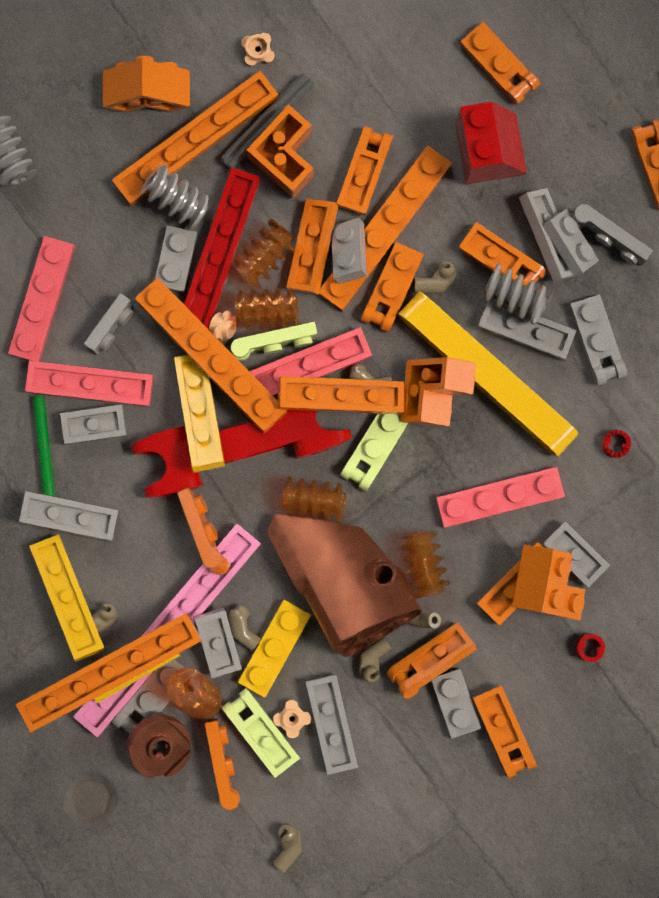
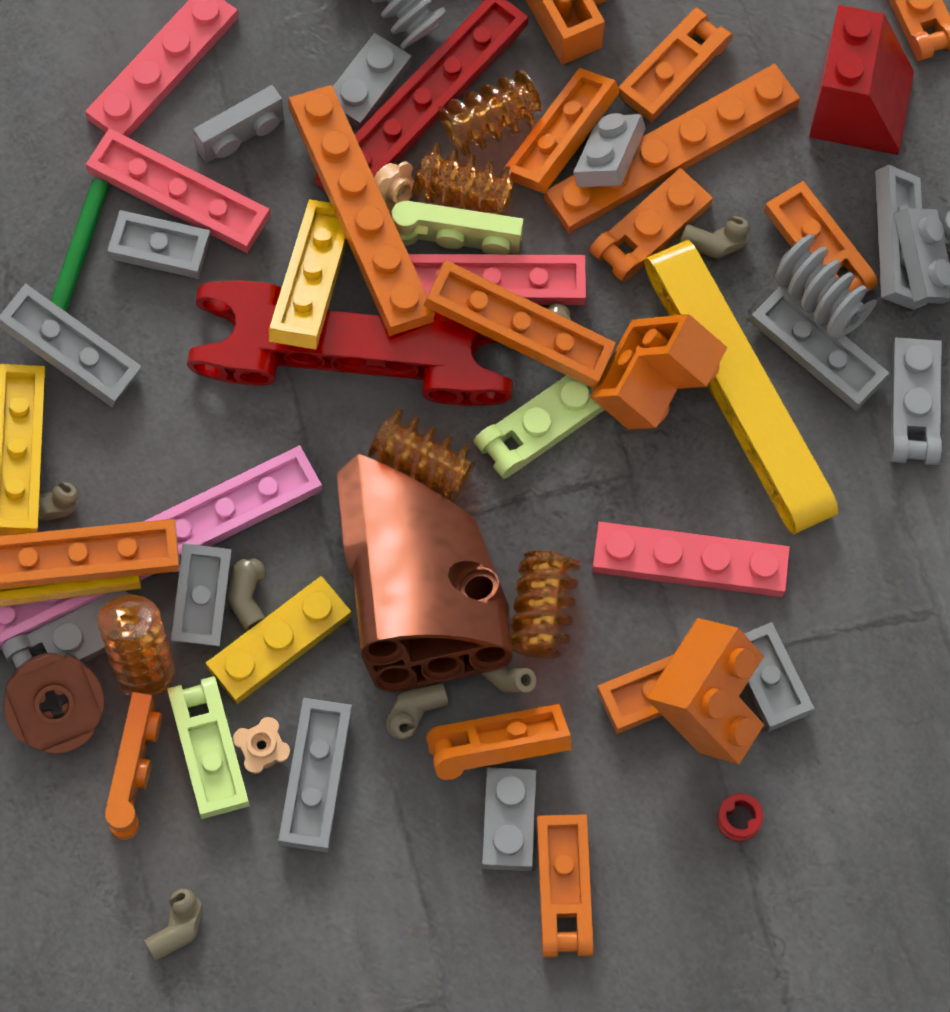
camera: 20 degrees right, 15 degrees down
(203, 532) = (247, 434): orange plate -> none
(625, 447) = (875, 544): red bush -> none

